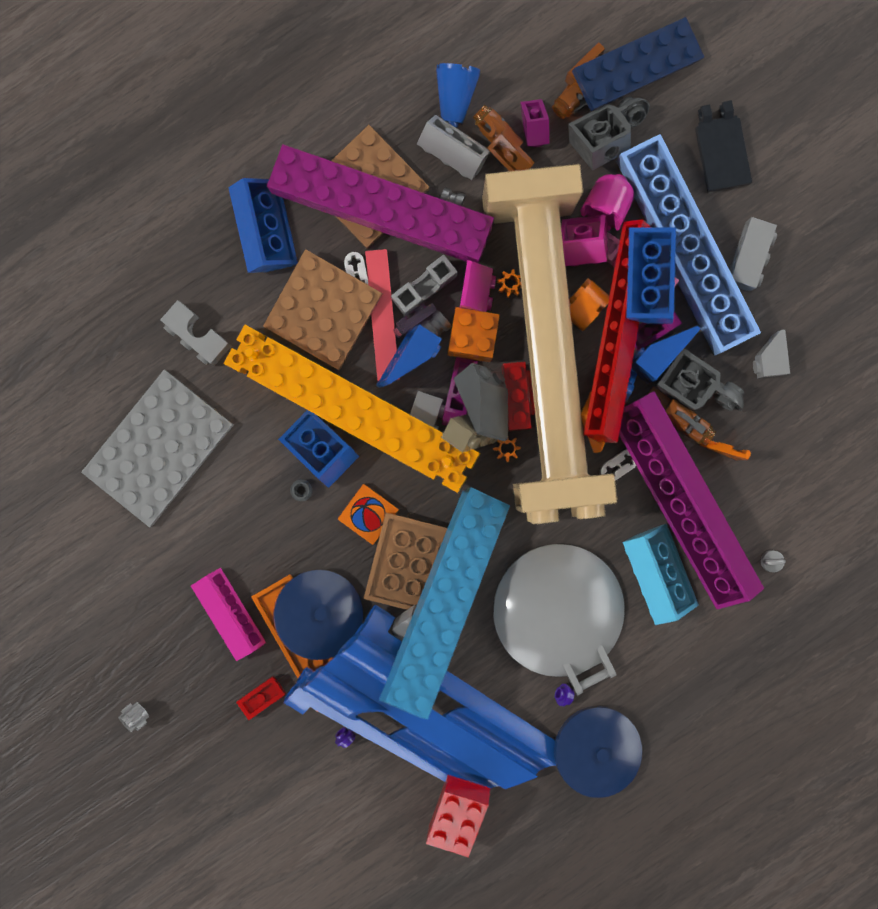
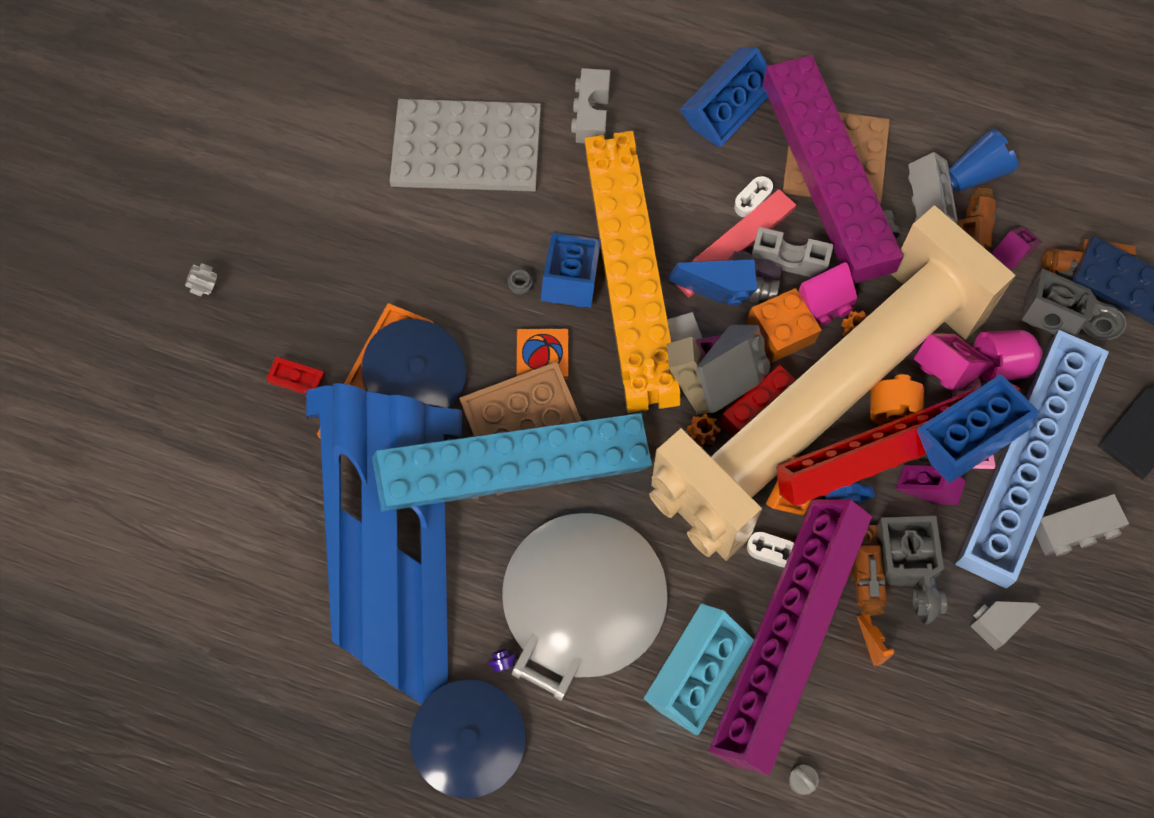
camera: 55 degrees right, 20 degrees down
(228, 614) = (356, 297): dark pink brick -> none
(322, 309) = (698, 190): medium nougat plate -> none
(344, 737) = (309, 477): dark purple plate -> none
(458, 815) = (302, 634): brick -> none
(654, 359) = (909, 497): blue slope -> none

